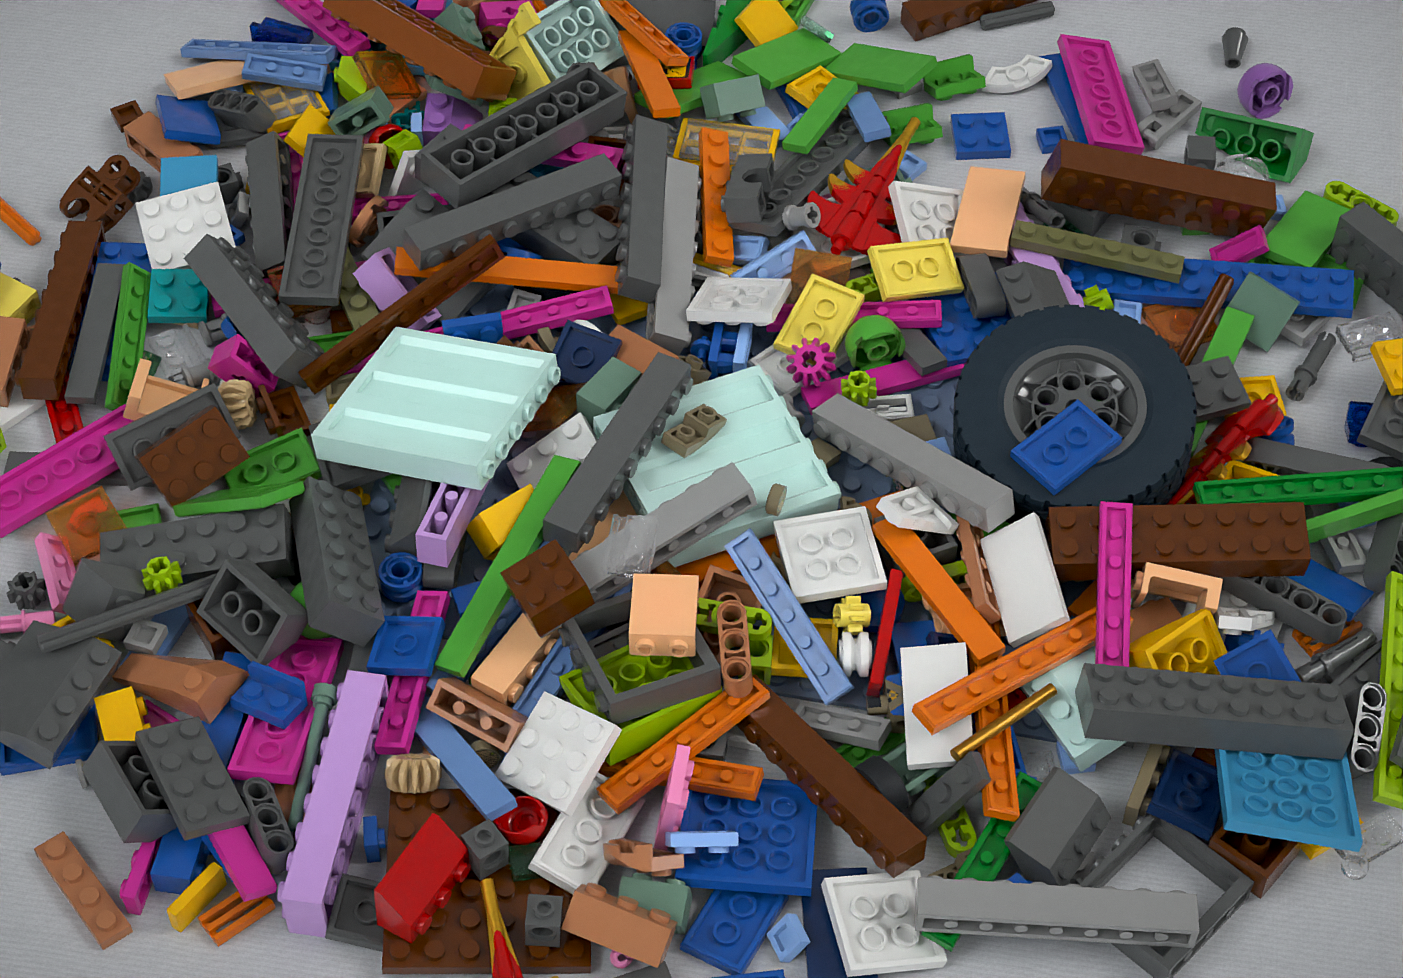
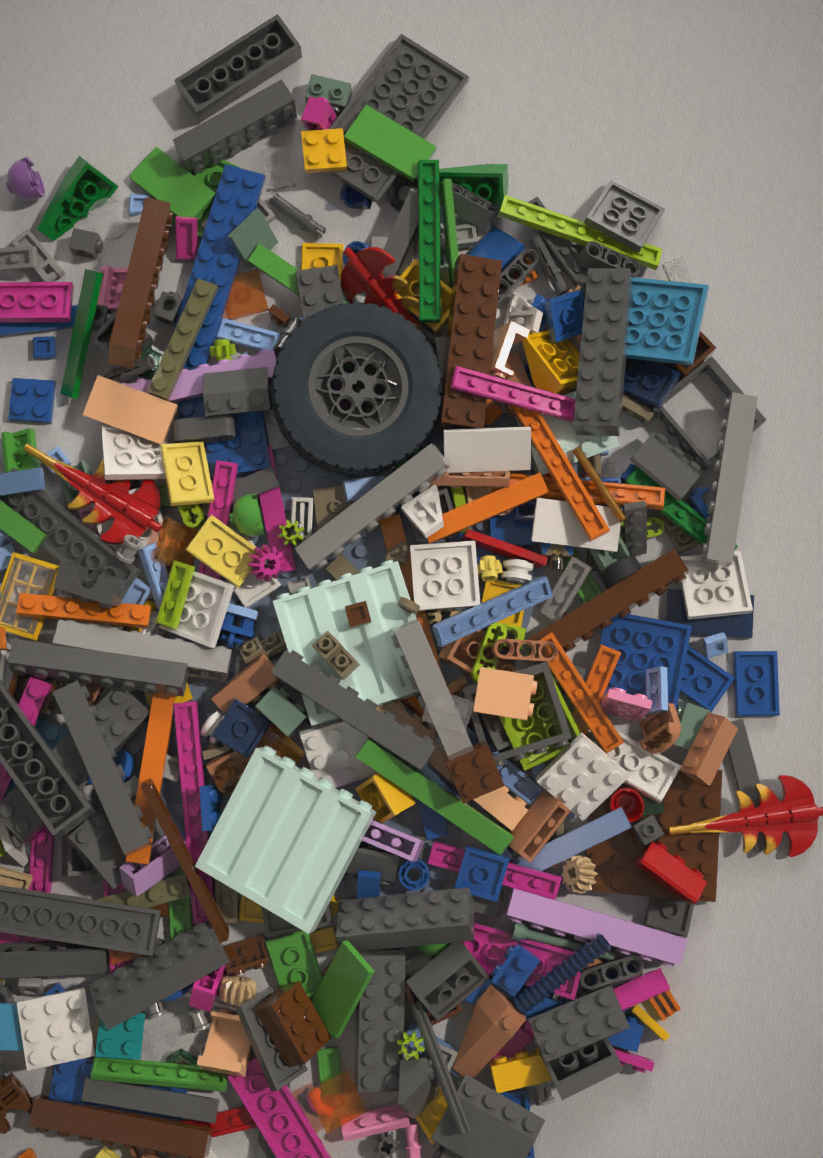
camera: 85 degrees left, 30 degrees up
(83, 890) = (631, 1098): nougat plate -> none
(264, 744) = (561, 974): none -> dark blue piece
(366, 221) = (66, 884): nougat tile -> none
(373, 839) = (617, 903): blue plate -> none
(383, 517) = (368, 884): none -> blue tile
(543, 920) = (701, 796): dark grey brick -> none
(751, 277) = (175, 594): none -> lime tile
(753, 447) = (358, 614): none -> reddish brown plate
(1029, 744) = (596, 463): none -> dark tan tile
(1041, 159) = (81, 333): none -> green tile
(1066, 447) = (395, 399): blue tile -> none
(1205, 318) = (256, 280): reddish brown axle -> none
(1346, 192) = (149, 133): lime beam -> none

